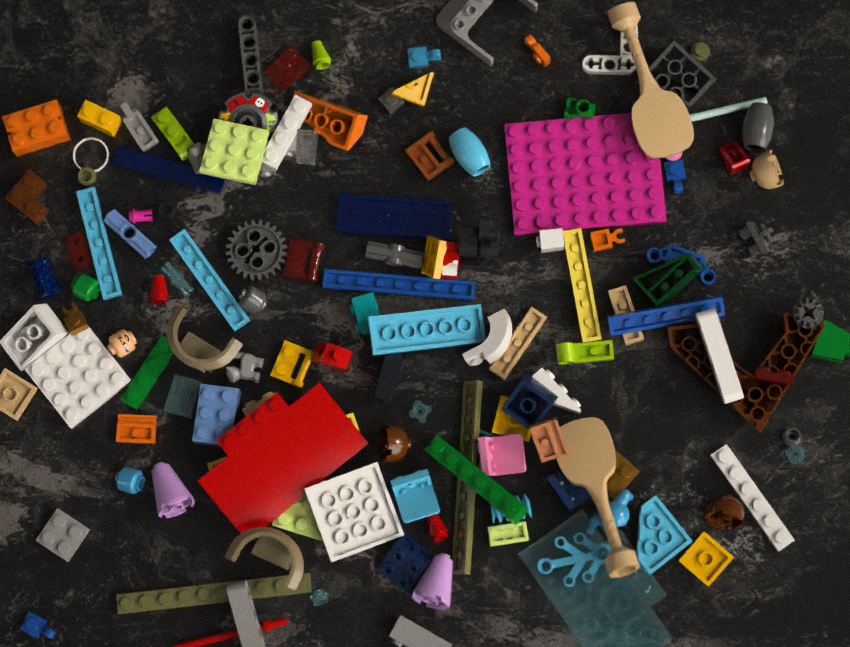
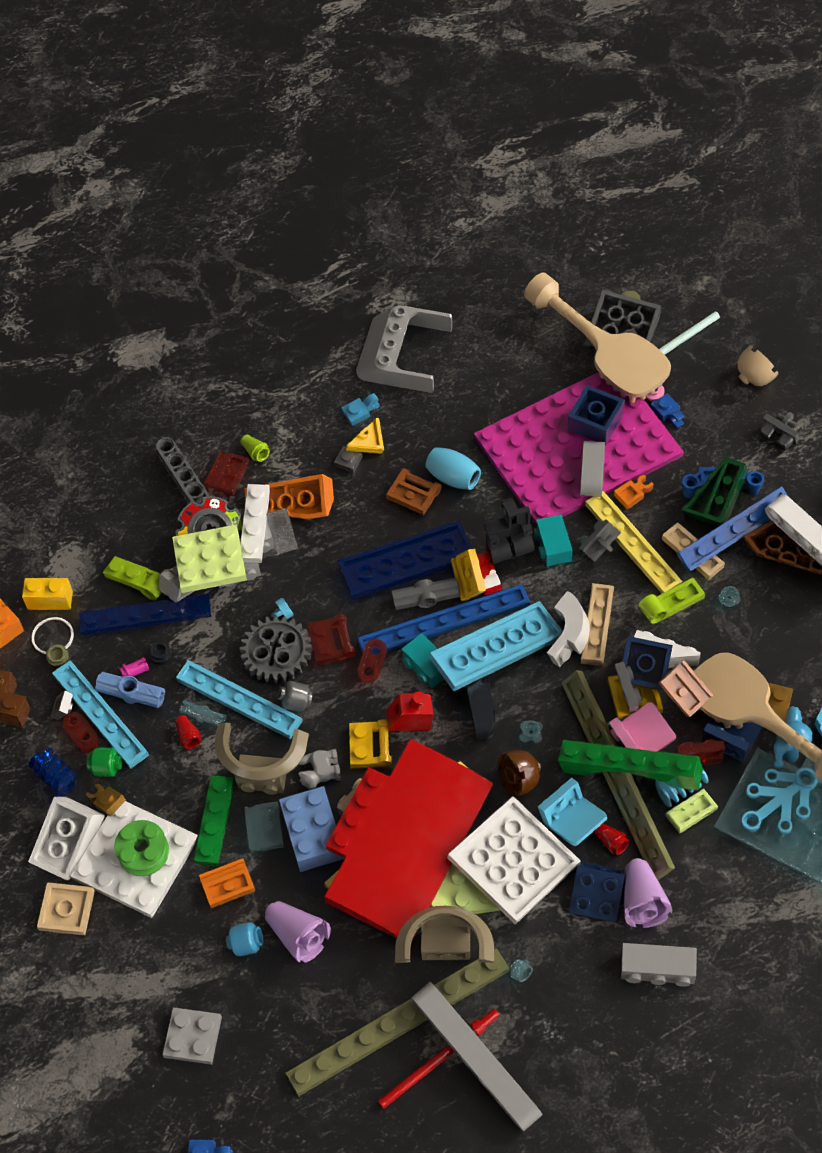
camera: 30 degrees left, 20 degrees down
(73, 223) = (62, 705): none -> flat silver plate
(74, 366) = (137, 834): none -> bright green wheel
(121, 343) = (170, 801): light nougat head -> none
(138, 127) = (93, 587): light grey hinge -> none
(276, 217) = (282, 610): none -> medium azure tile
(325, 295) = (372, 661): none -> clear red plate
(503, 421) = (630, 695): none -> dark grey plate
(519, 254) = (553, 540): none -> teal brick
(539, 53) = (476, 359): orange plate -> none
(545, 494) = (708, 752): none -> clear red plate
(550, 240) = (579, 514): white brick -> none
(554, 274) = (599, 540): none -> dark grey hips
(575, 109) = (543, 389): green plate -> none
(580, 206) = (592, 469): none -> light grey beam
(607, 159) = (595, 414): none -> dark blue brick
(624, 57) = (558, 333): white beam -> none
(638, 368) = (733, 593): none -> clear light blue plate
(734, 157) = (718, 372): red slope -> none
(757, 127) = (724, 335): dark grey piece -> none

